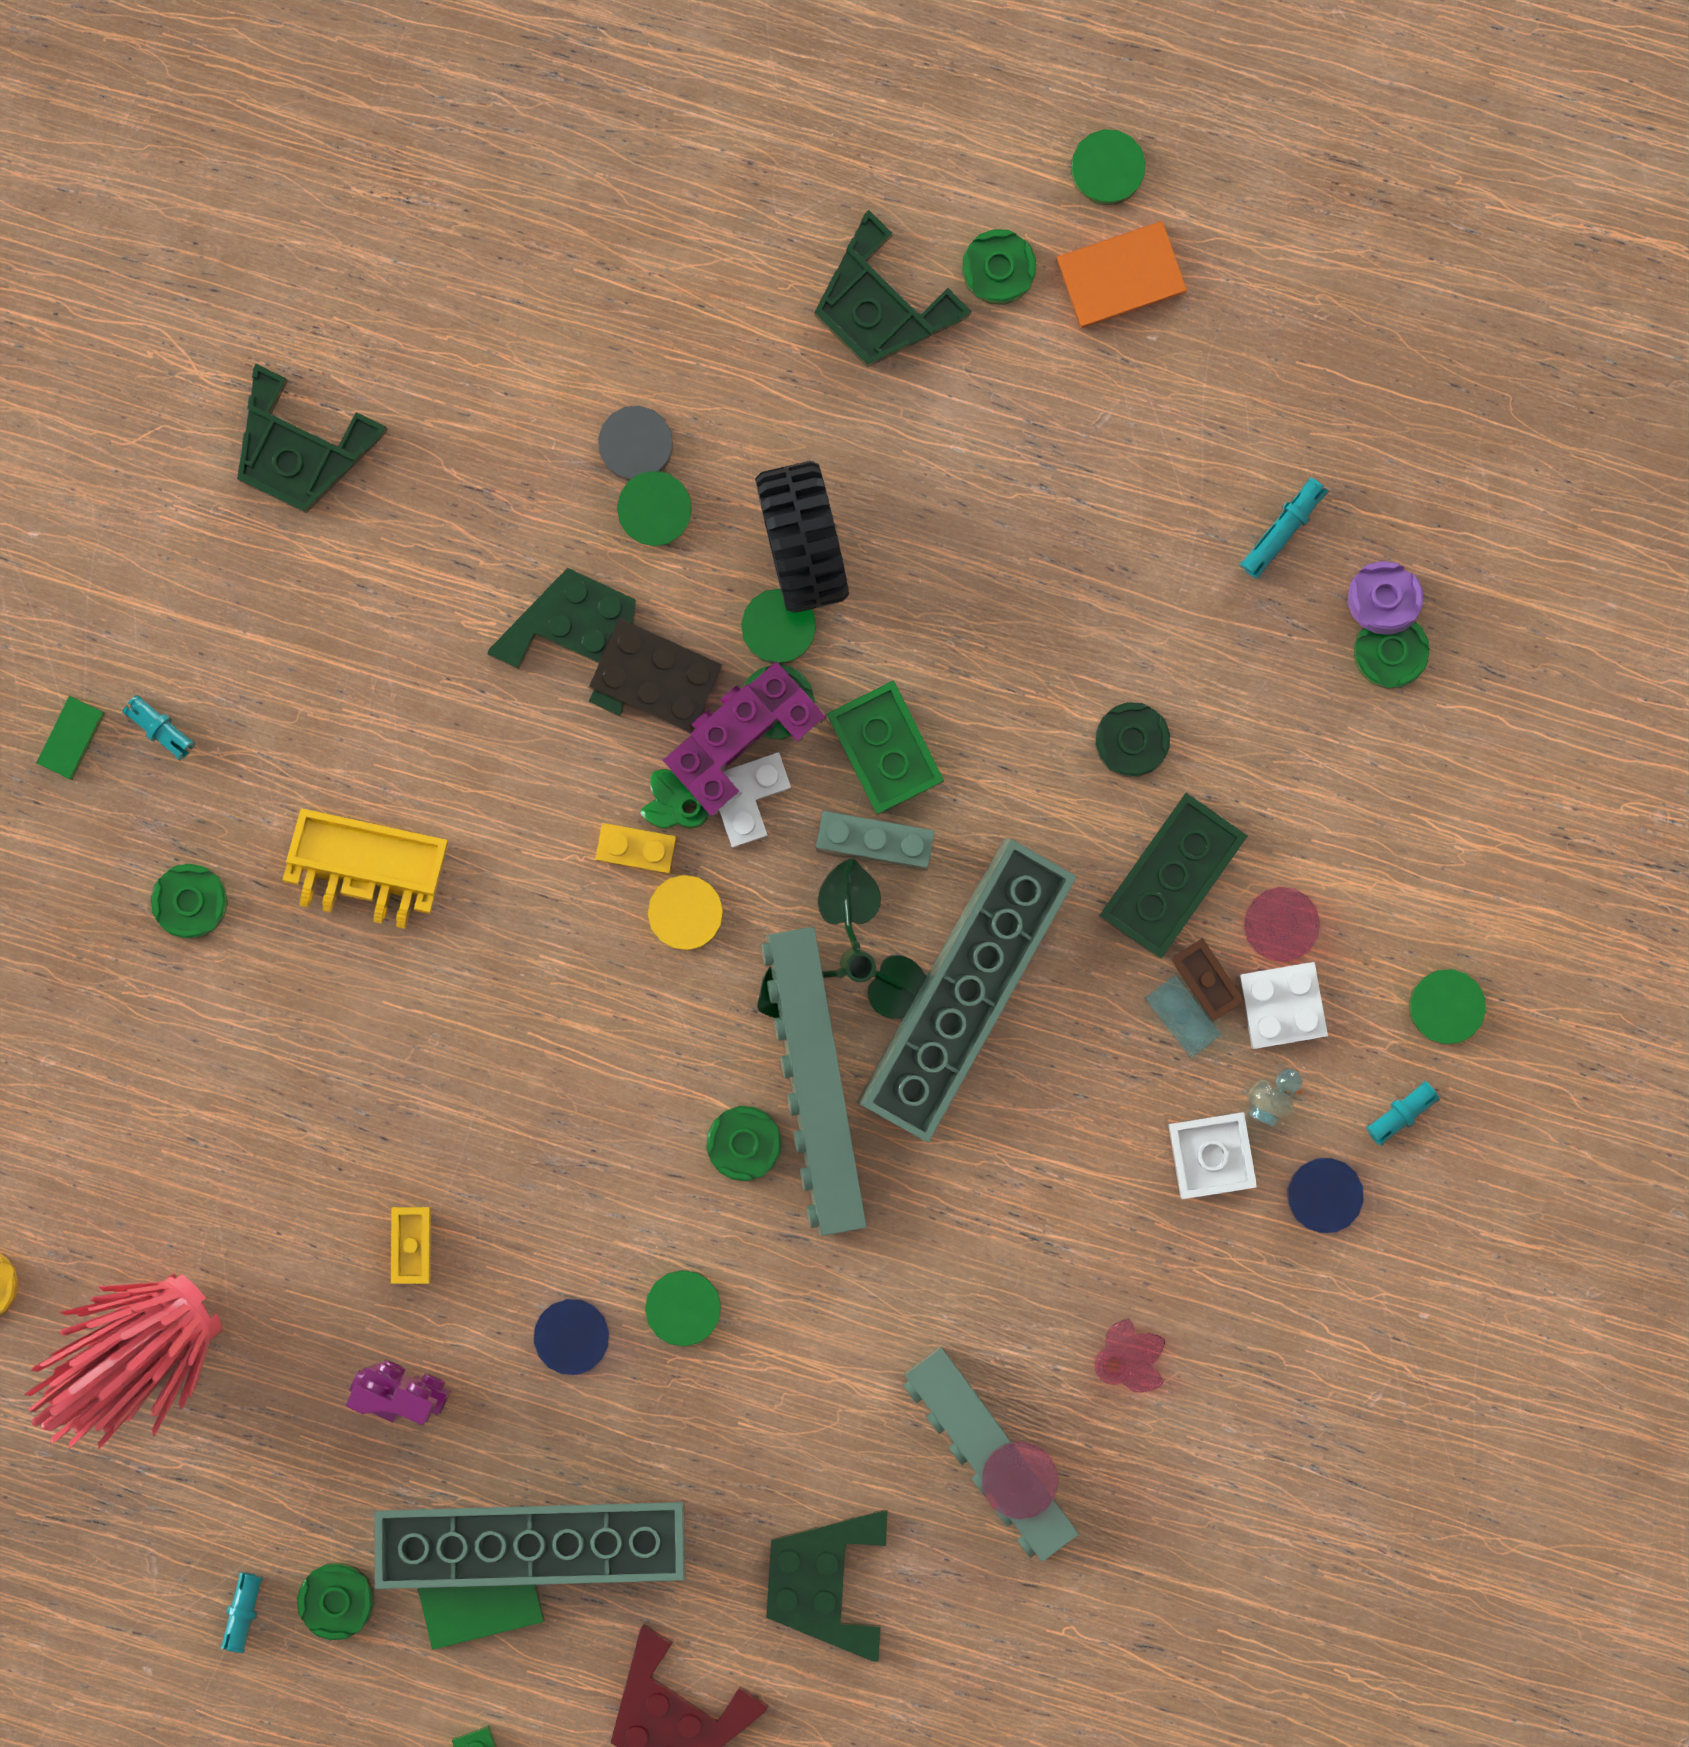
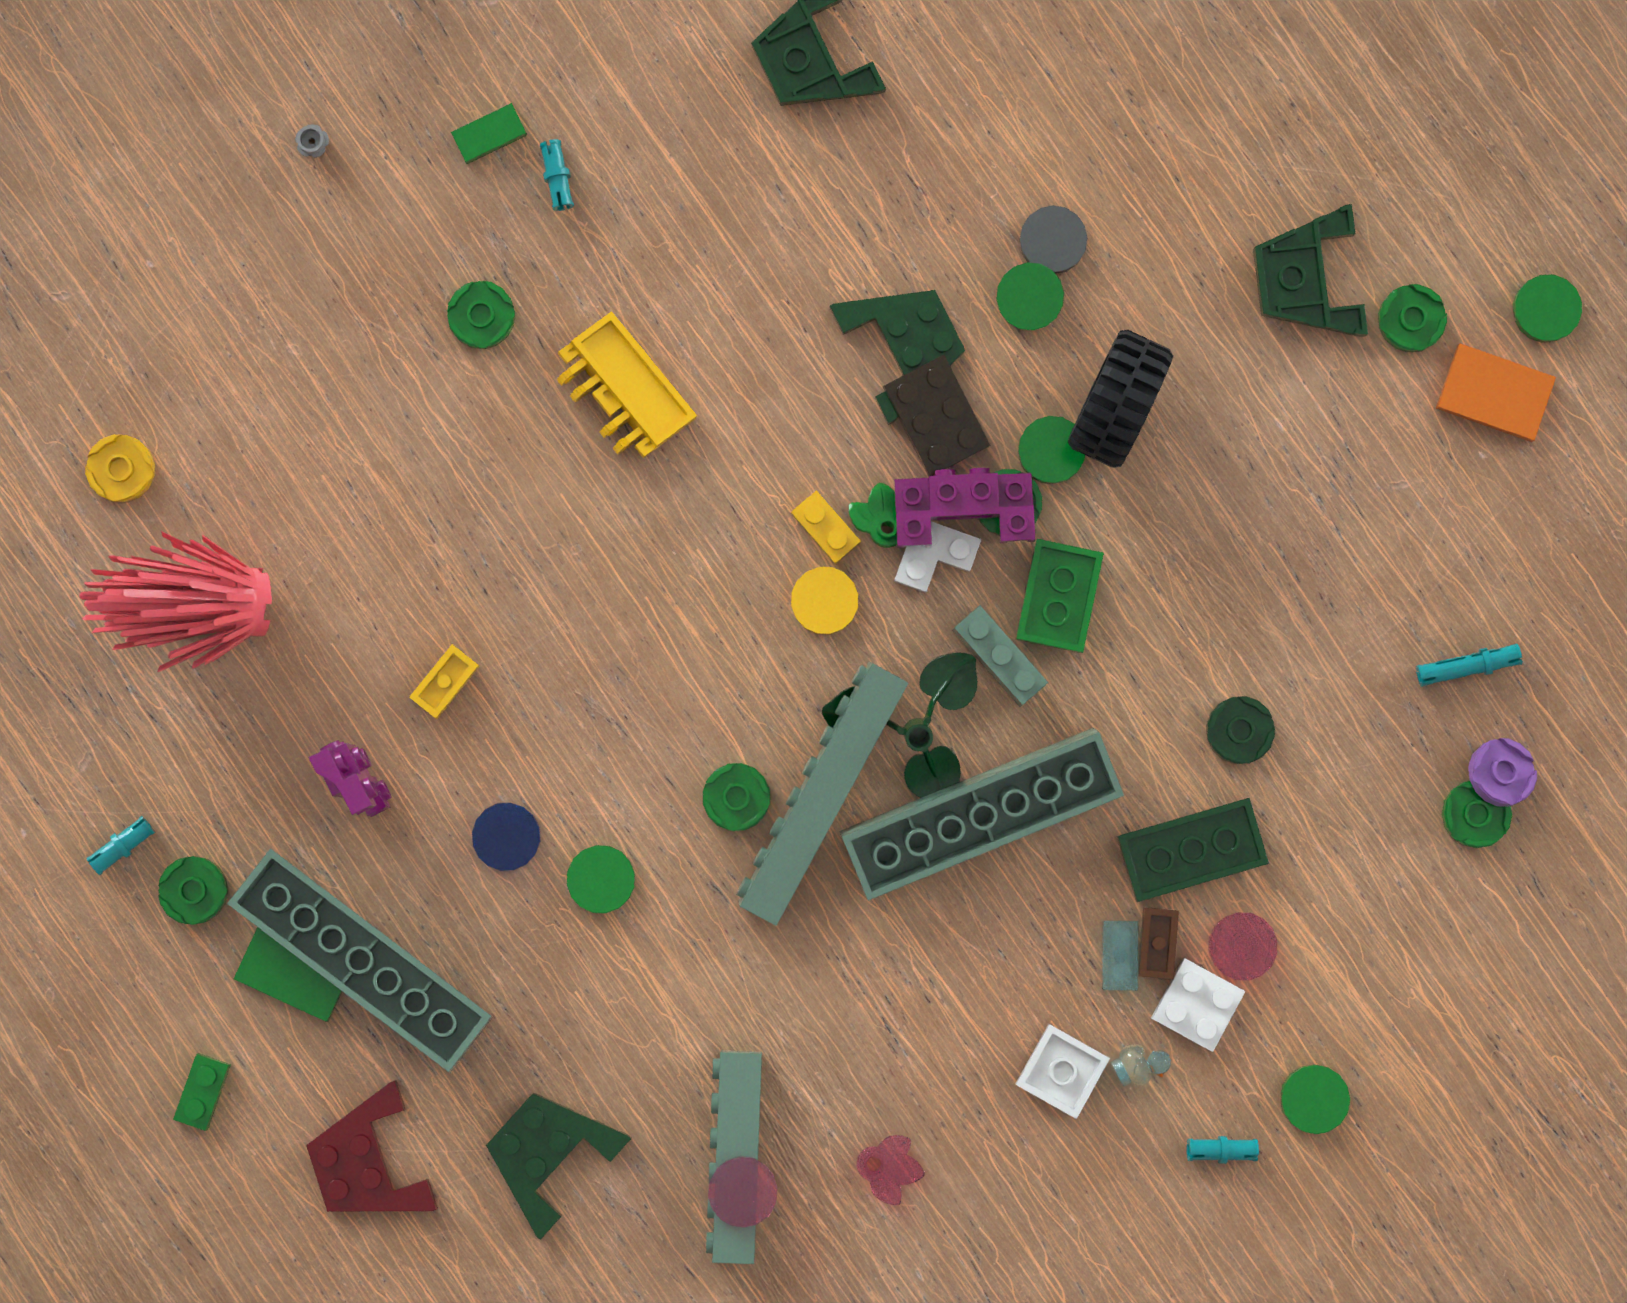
camera: 30 degrees right, 0 degrees up
(1325, 1195) = (1120, 1163): clear blue tile -> none

